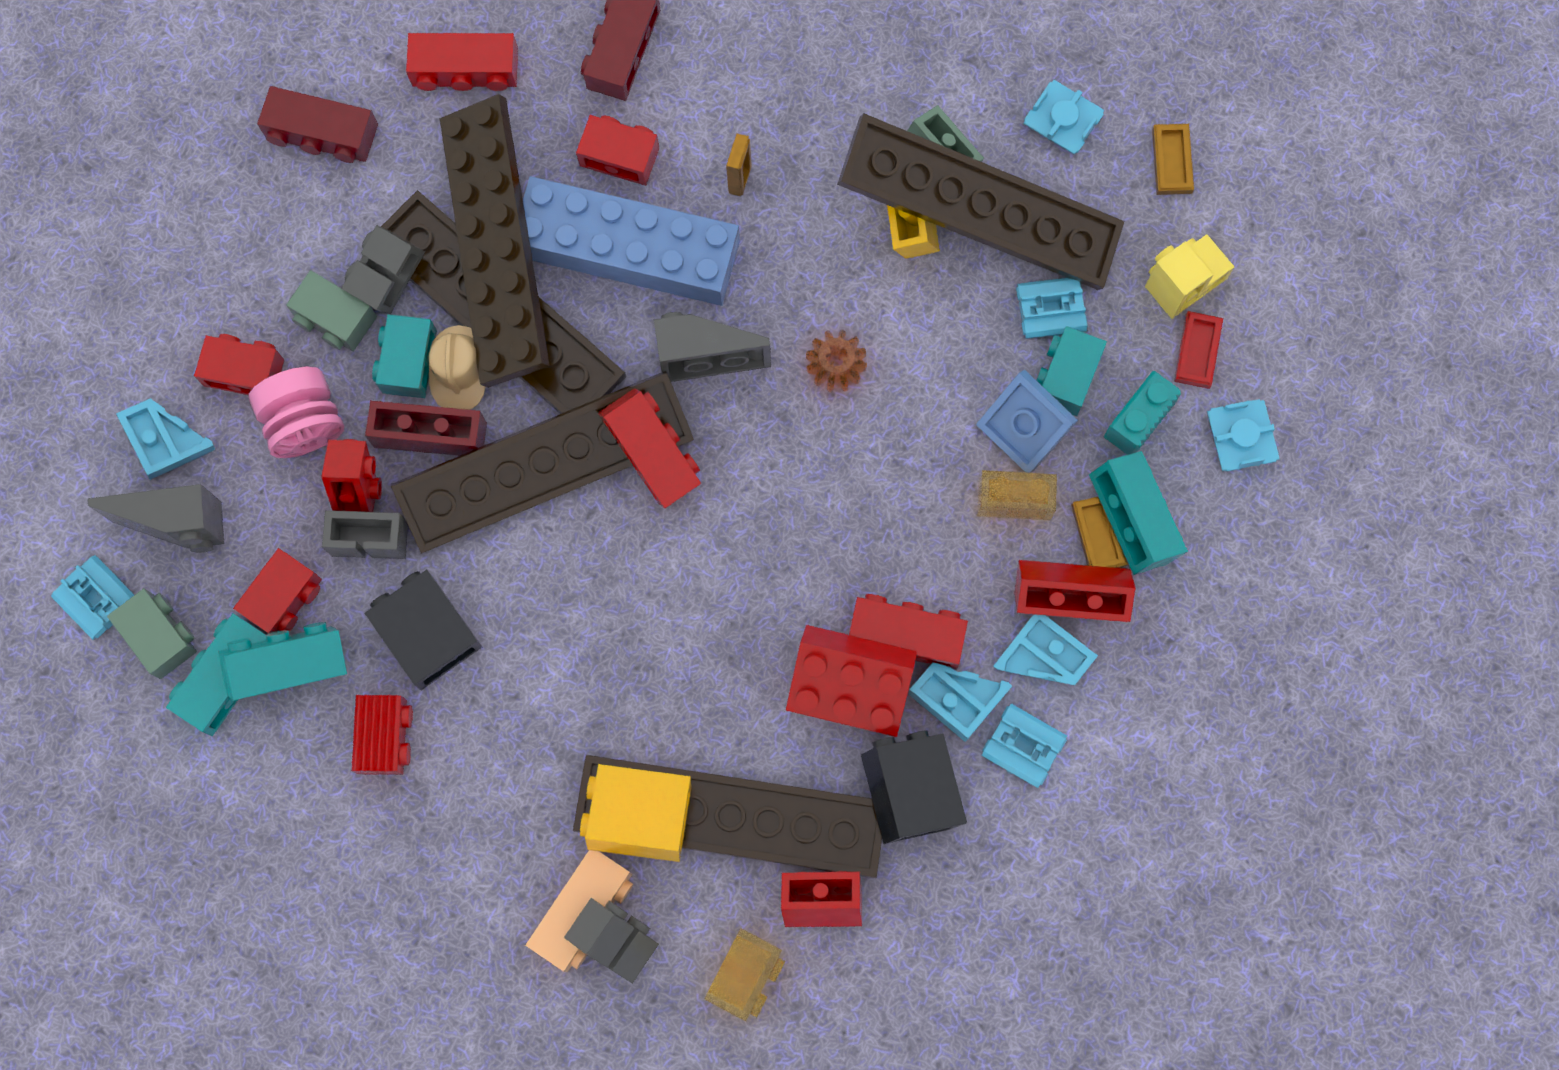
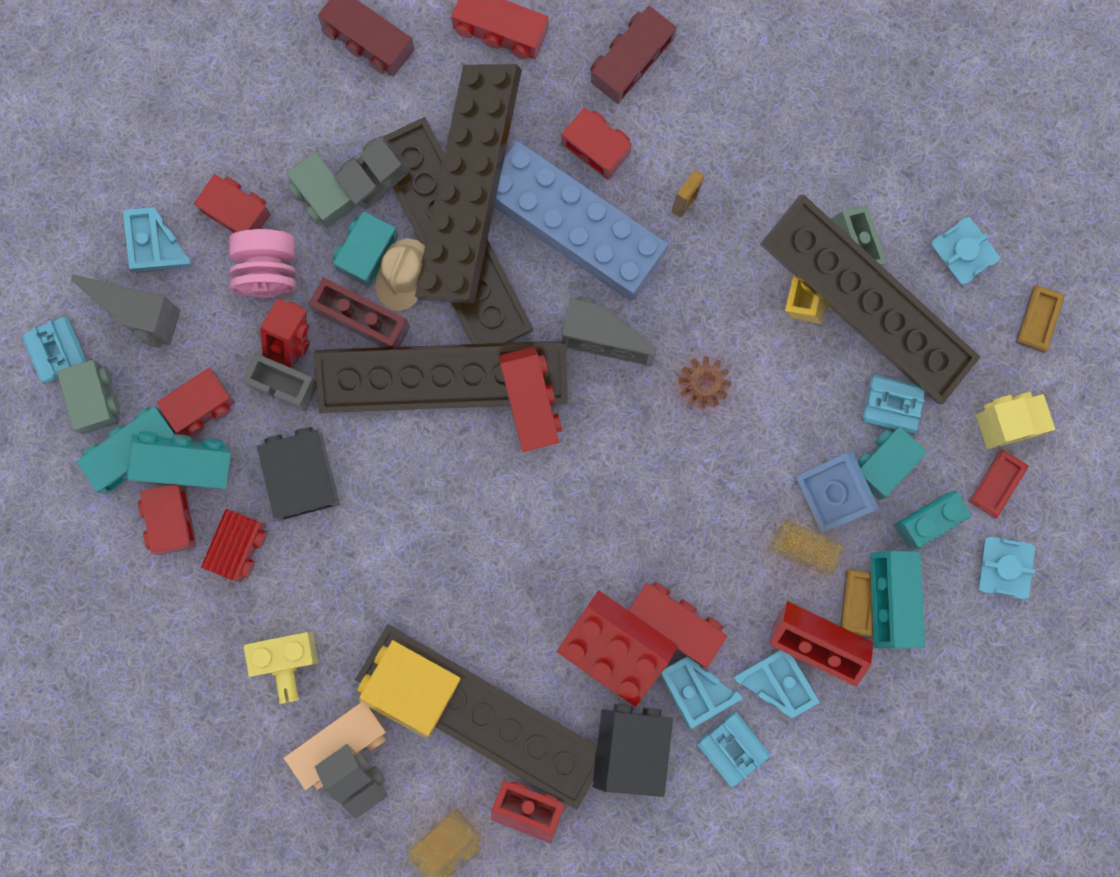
camera: 15 degrees right, 5 degrees up
(293, 733) = (167, 519): none -> red brick
(481, 837) = (282, 658): none -> light yellow brick

